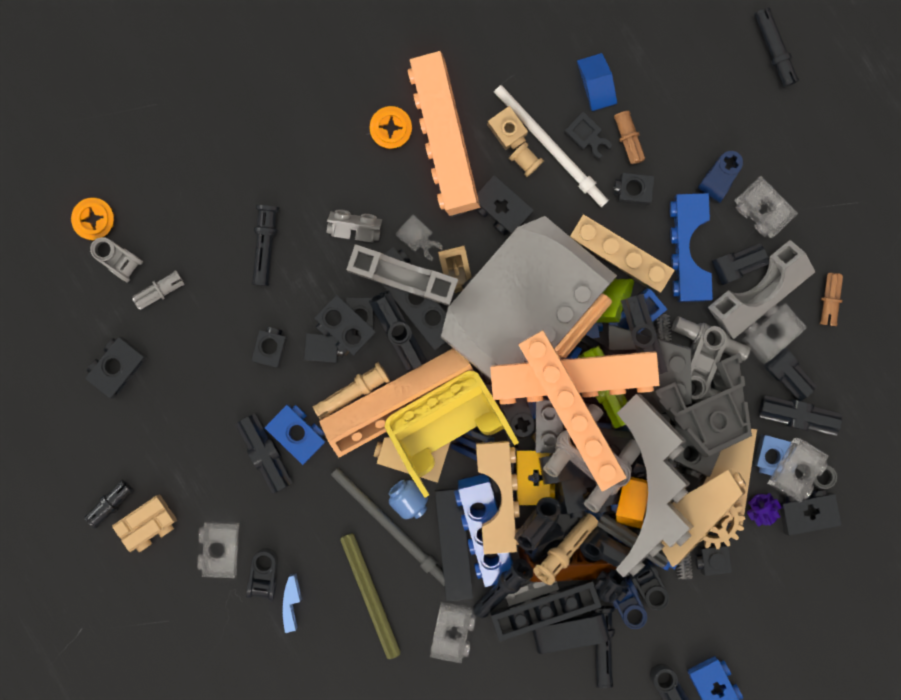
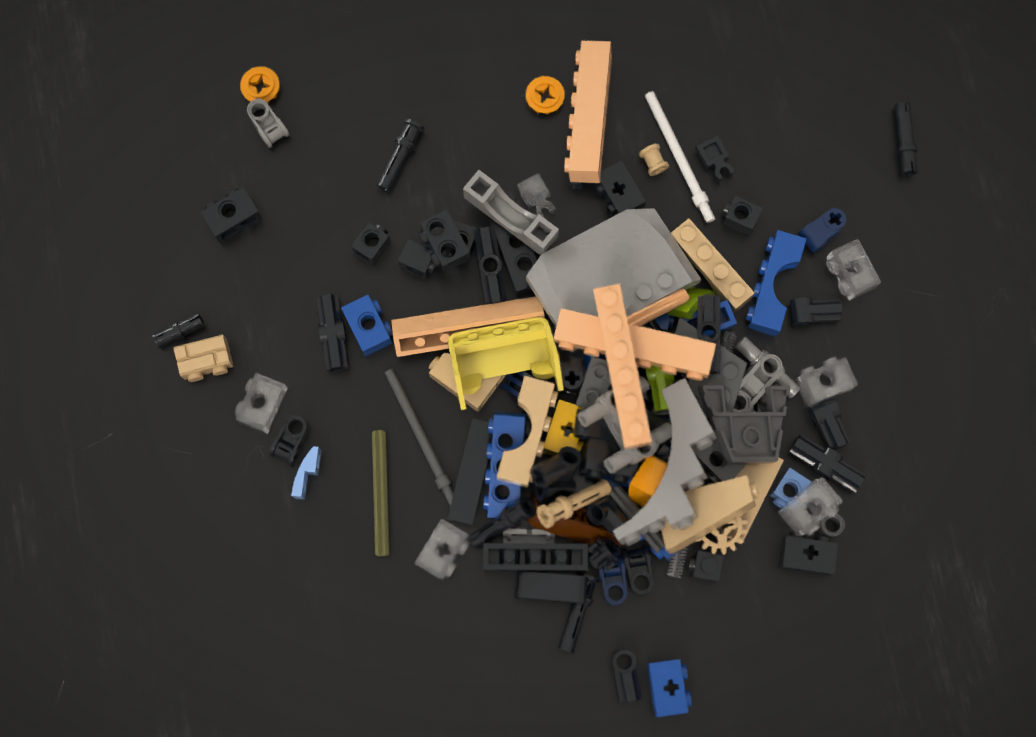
camera: 20 degrees right, 10 degrees down
(158, 290) = (292, 163): light grey axle -> none
(342, 222) = (474, 161): light grey hinge -> none
(362, 385) = (441, 303): tan pin -> none
(407, 499) = (445, 416): medium blue head -> none
(455, 264) = (563, 220): tan slope -> none
(508, 129) = (646, 127): tan brick -> none
(597, 81) = (738, 117): blue slope -> none
(629, 137) = (751, 171): medium nougat axle -> none
(764, 509) = (767, 536): dark purple gear -> none
(786, 271) = (856, 329): light grey arch -> none
(832, 298) = (888, 370): medium nougat axle -> none

